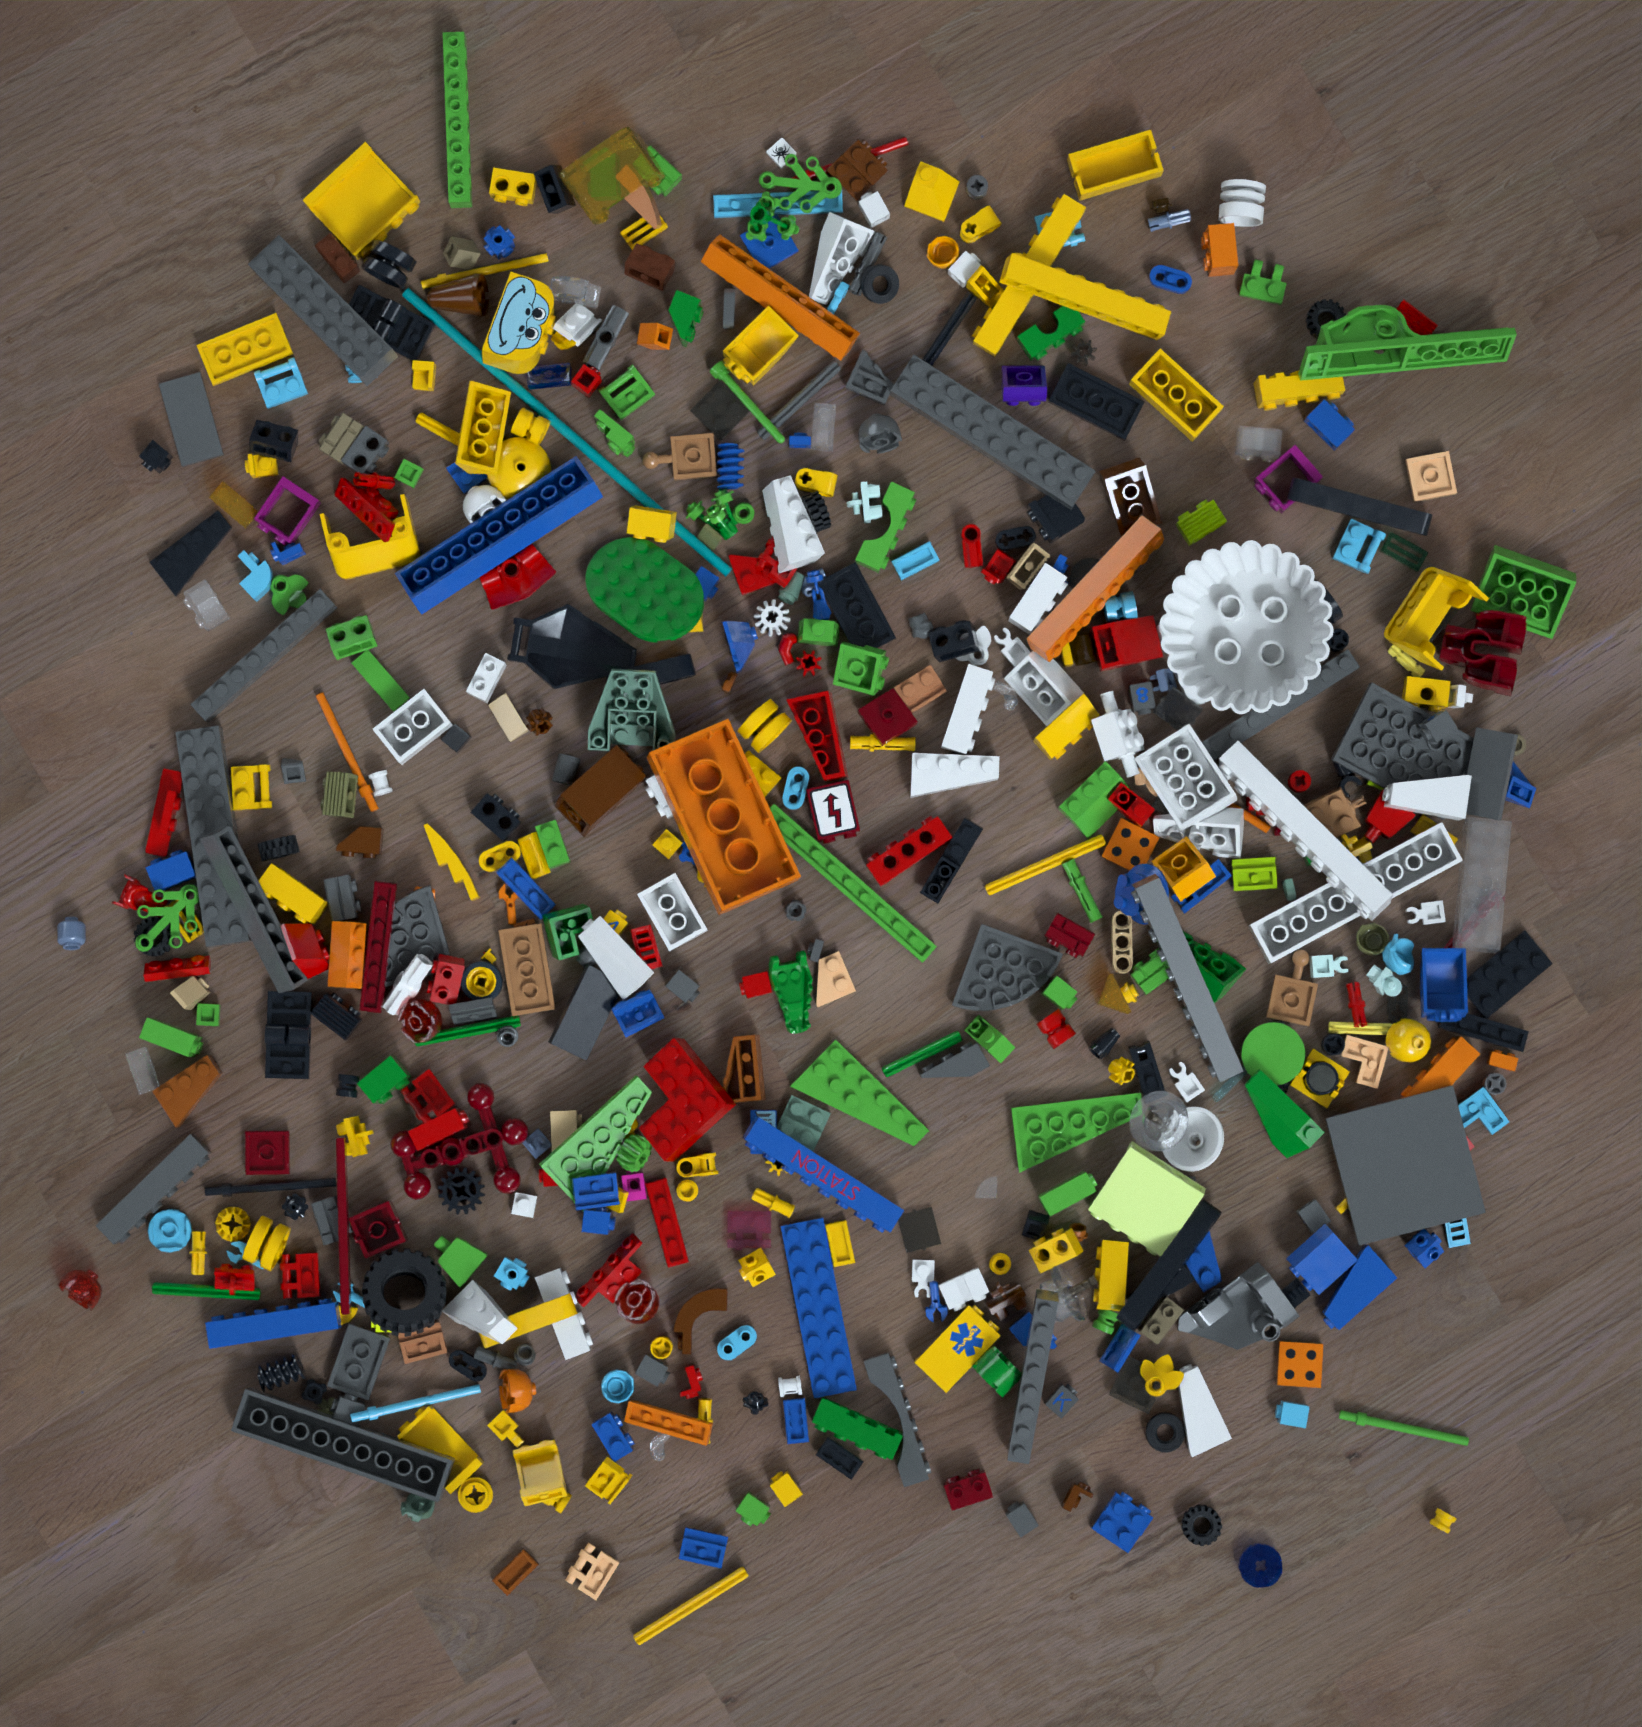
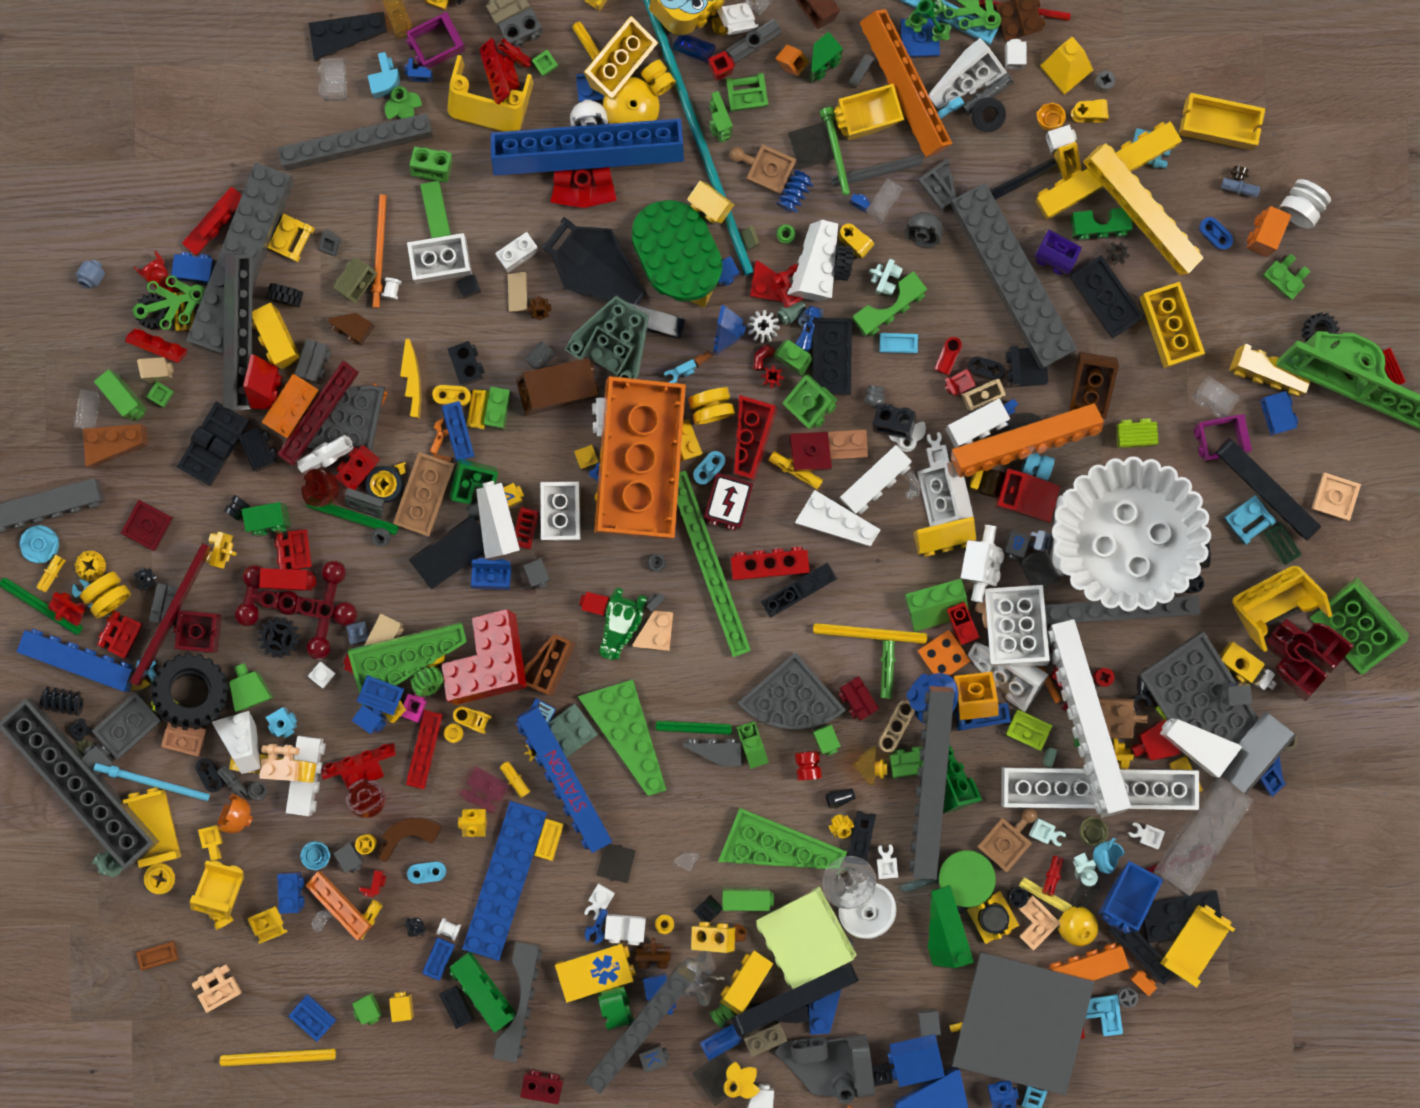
camera: 25 degrees right, 0 degrees up
(227, 1190) = (101, 537): black bar -> none
(536, 1319) = (279, 769): none -> light nougat plate
(716, 514) = (763, 222): plant -> none
(718, 703) = (685, 369): none -> medium azure plate
(1406, 661) = (1238, 629): light yellow axle -> none
(1533, 994) = (1196, 944): none -> yellow panel

